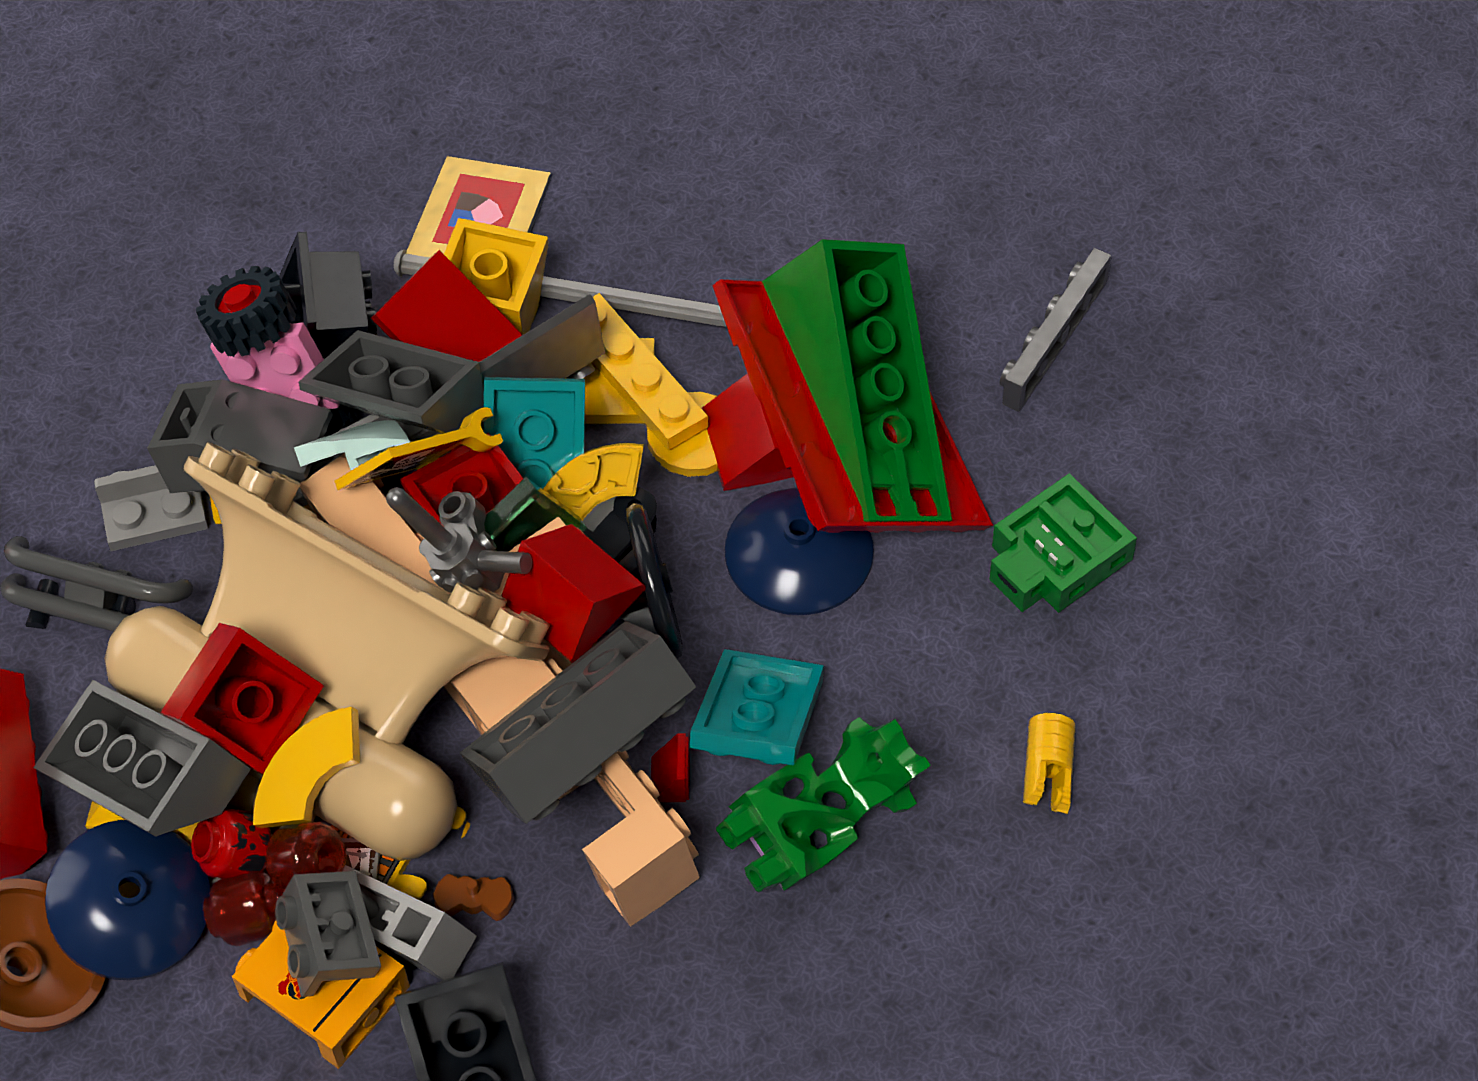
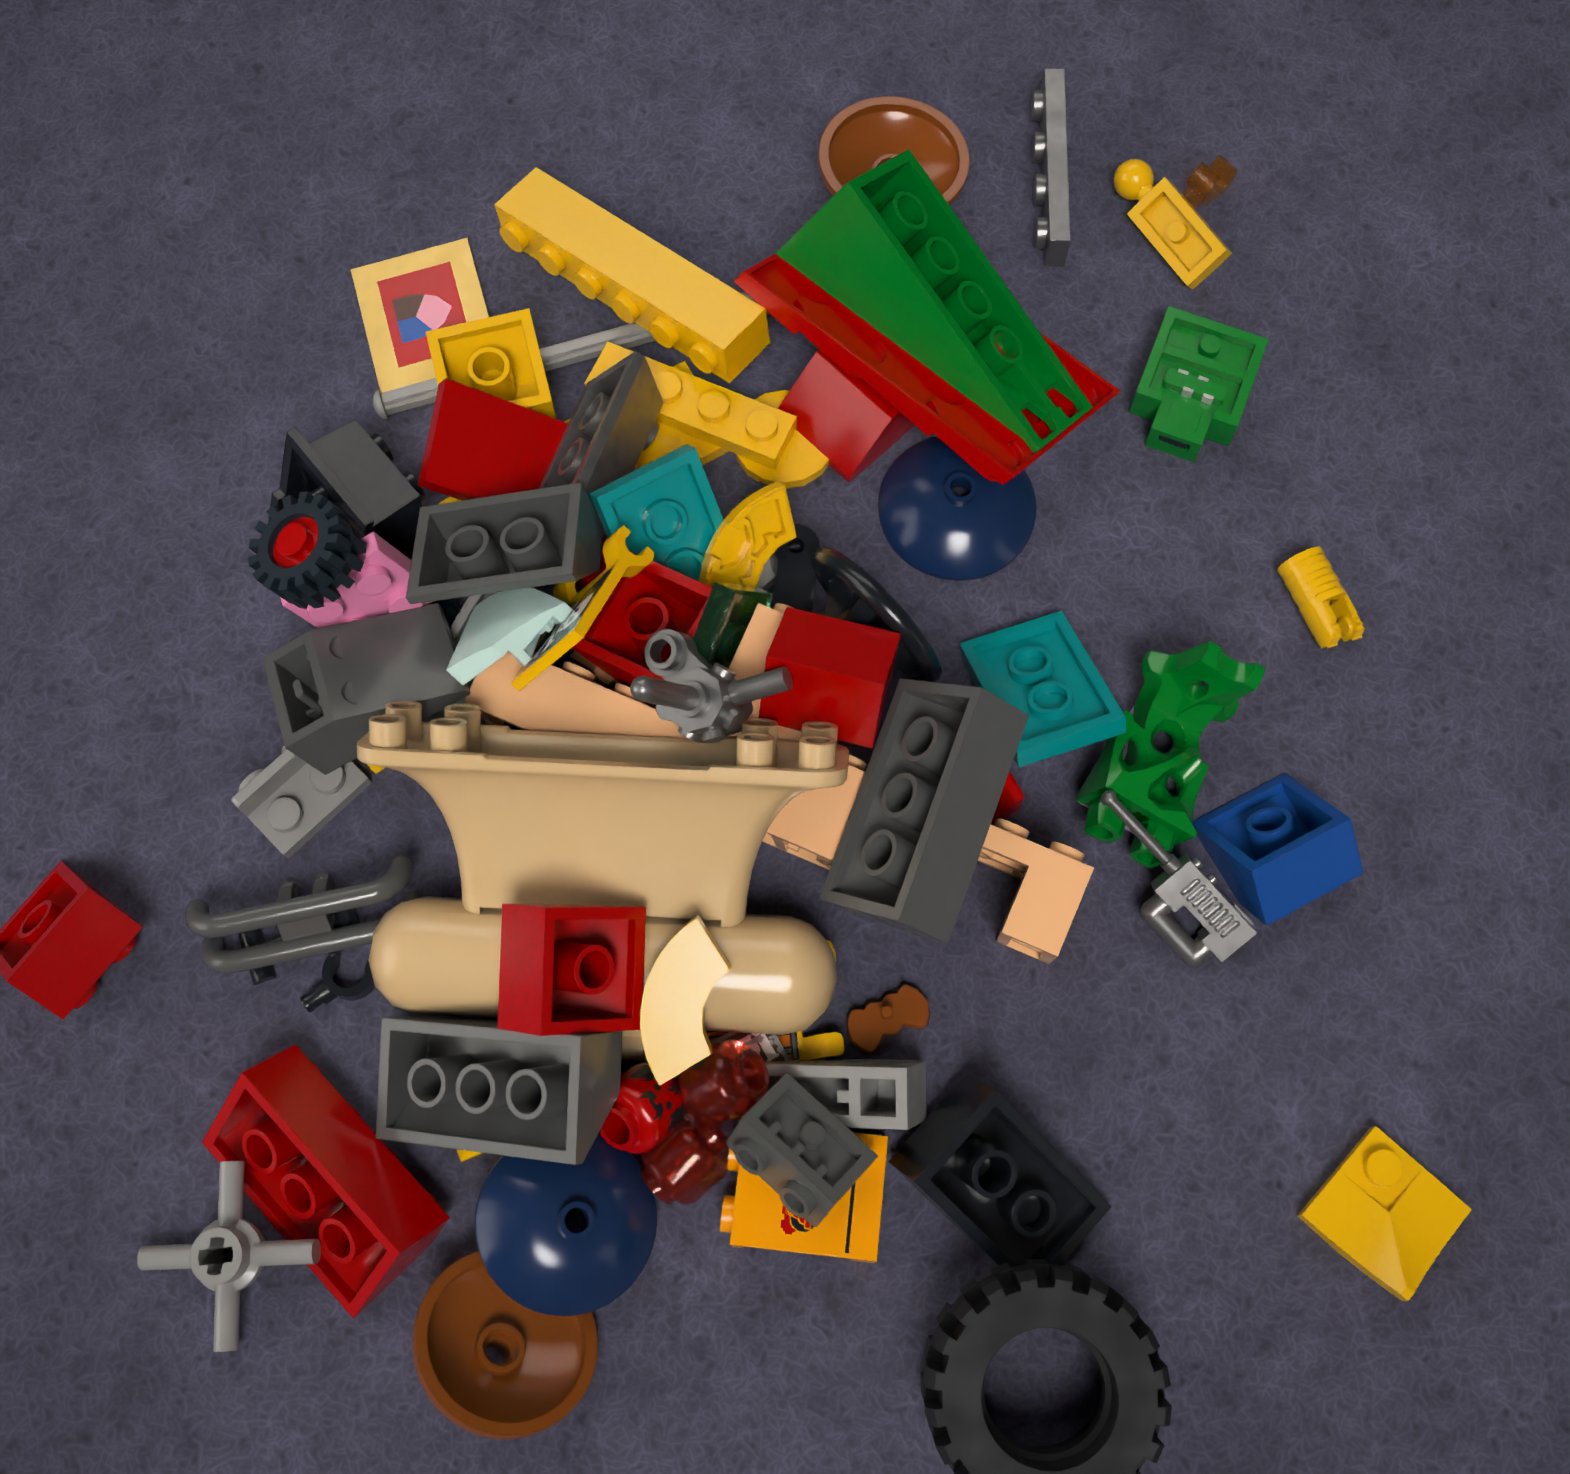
camera: 30 degrees left, 15 degrees up
(76, 654) = (329, 989): none -> black piece
(650, 254) = (633, 275): none -> yellow brick
(776, 922) = (1185, 885): none -> flat silver piece
(874, 934) = (1280, 847): none -> blue slope
(940, 253) = (884, 128): none -> dark orange dish
(1126, 417) = (1170, 223): none -> yellow plate
(1179, 405) = (1209, 183): none -> clear orange piece

